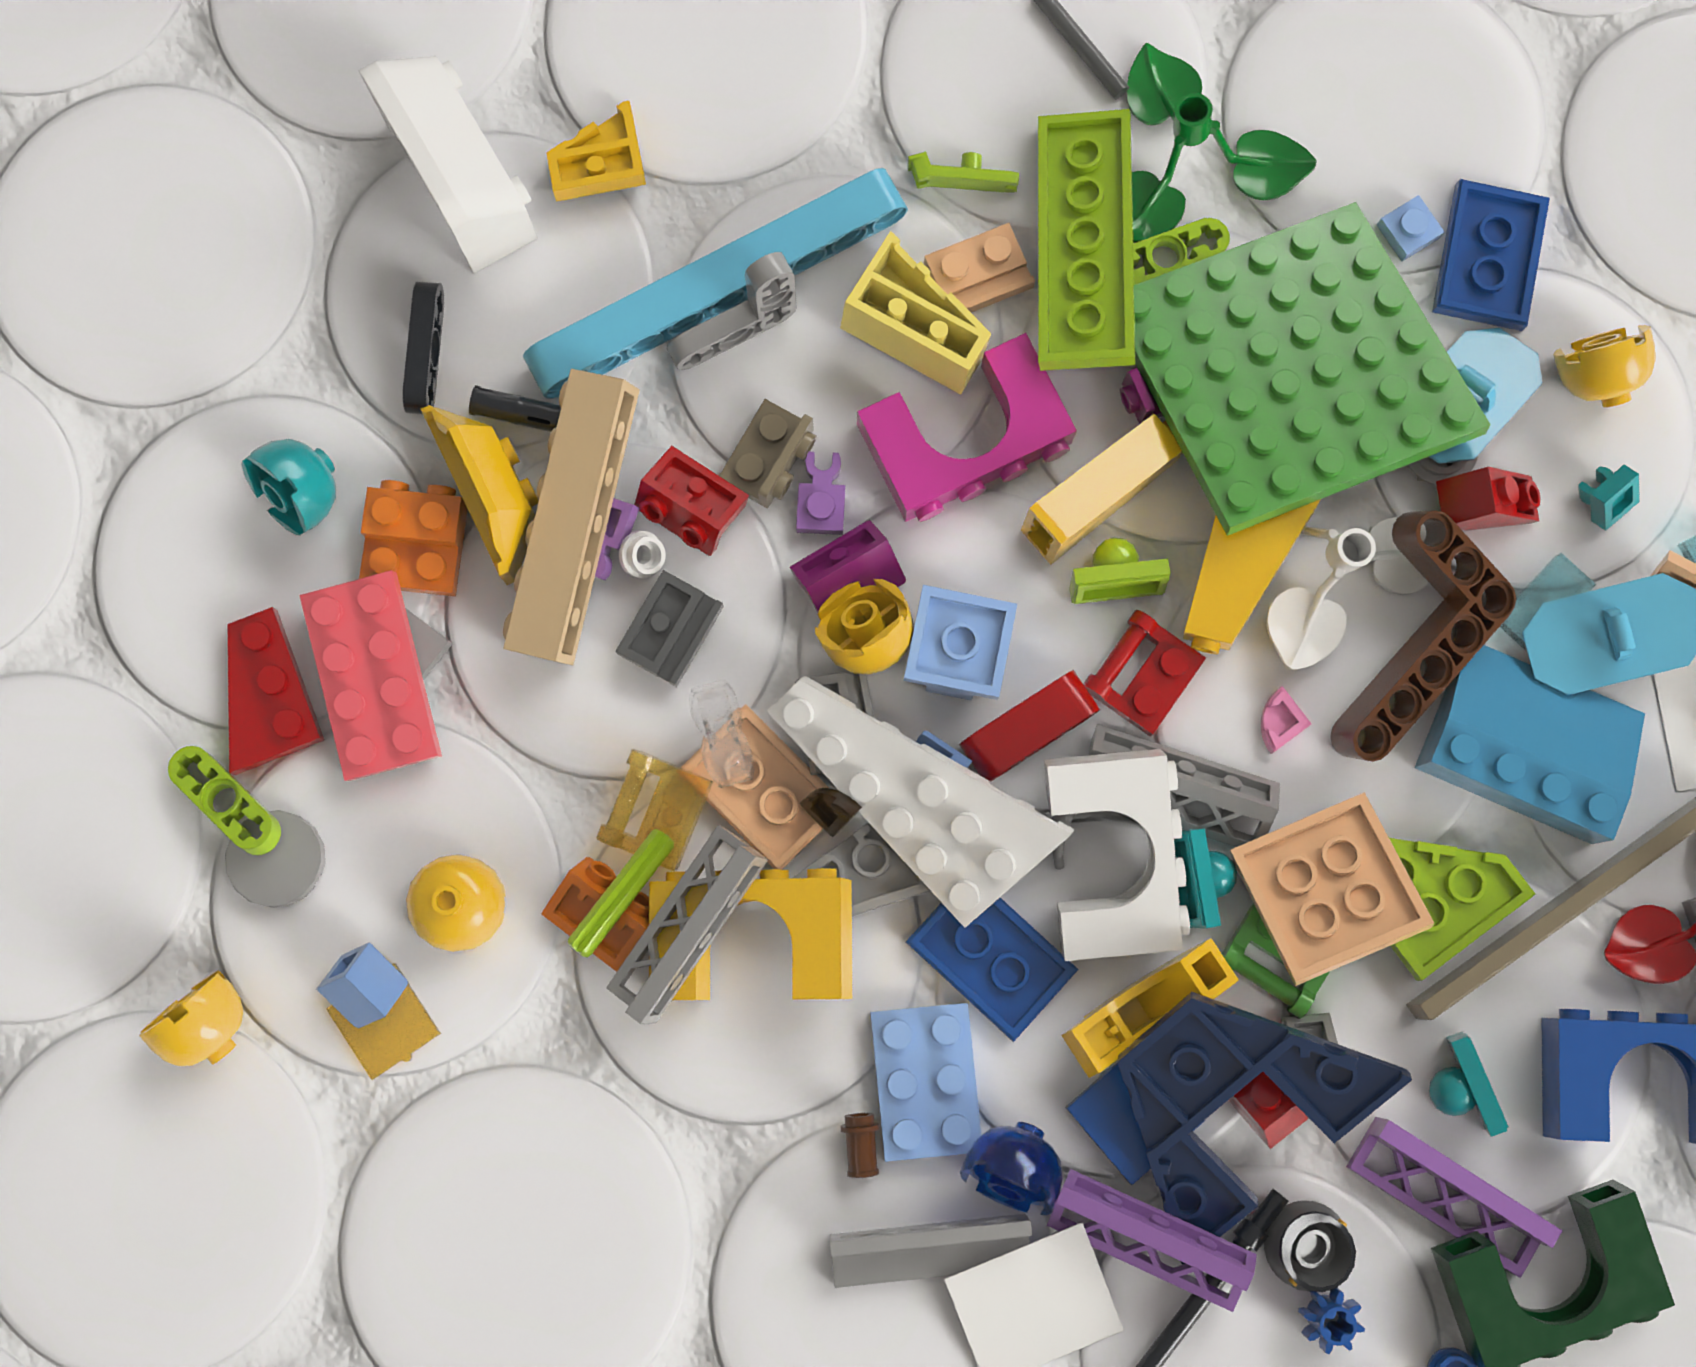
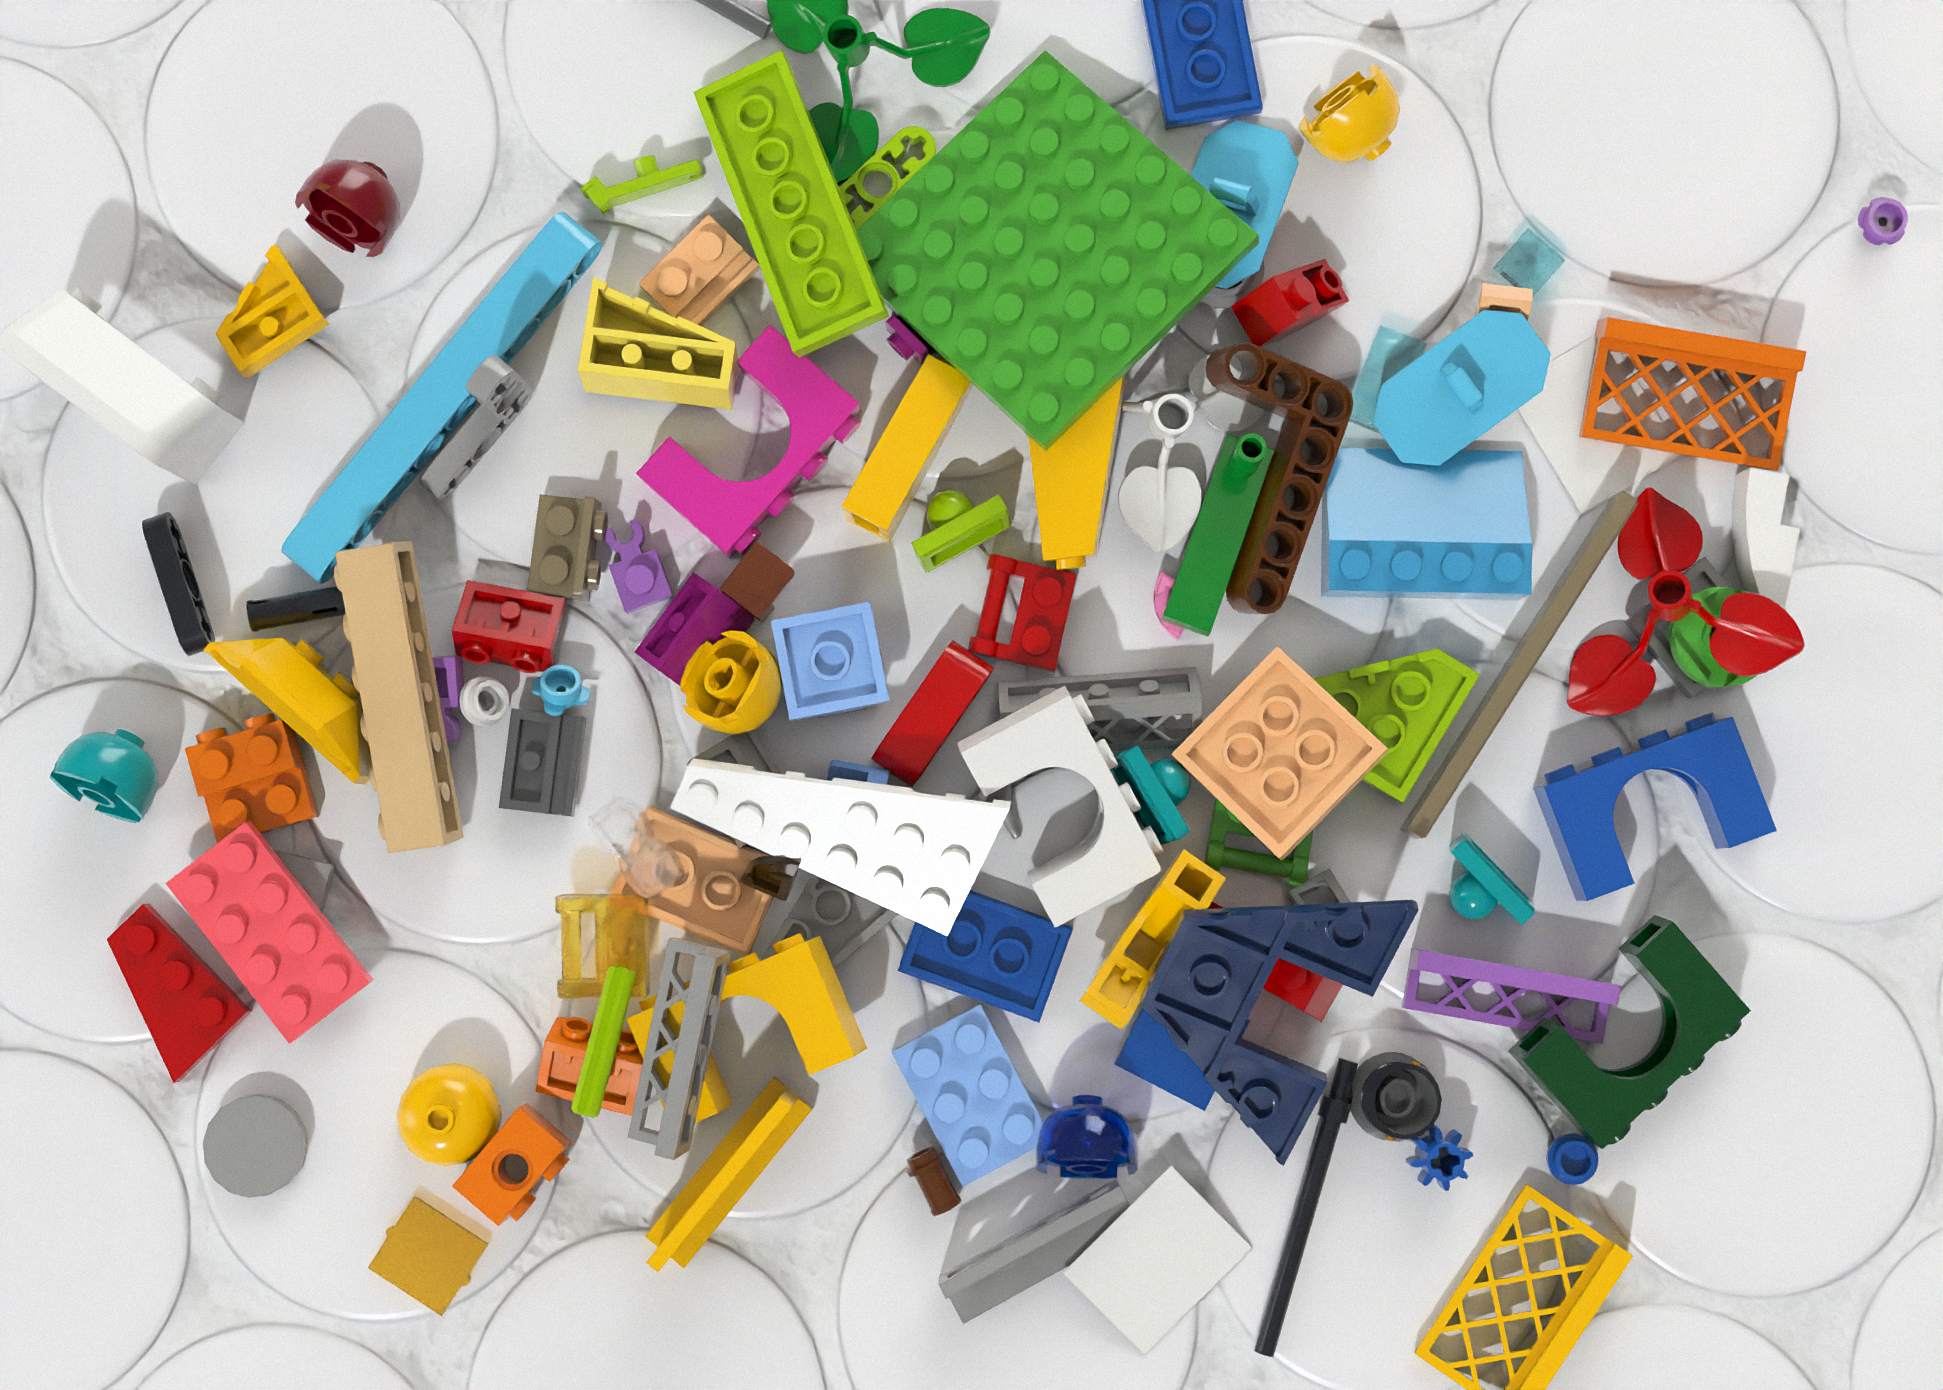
camera: 20 degrees left, 5 degrees up
(197, 1024) = (250, 1335): yellow cylinder -> none
(244, 804) = (201, 1108): lime beam -> none
(363, 985) = (393, 1231): medium blue panel -> none
(464, 972) = (486, 1179): none -> orange brick
(678, 1060) = (727, 1174): none -> yellow fence
(707, 92) = (351, 205): none -> dark red cylinder
(712, 571) = (556, 679): none -> medium azure plate
(924, 548) = (757, 581): none -> copper panel
(1154, 1232) = (1242, 1147): medium lavender fence -> none
(1348, 672) = (1218, 533): none -> green piece
(1410, 228) = (1110, 53): light blue plate -> none
(1613, 497) = (1410, 249): teal tile -> none

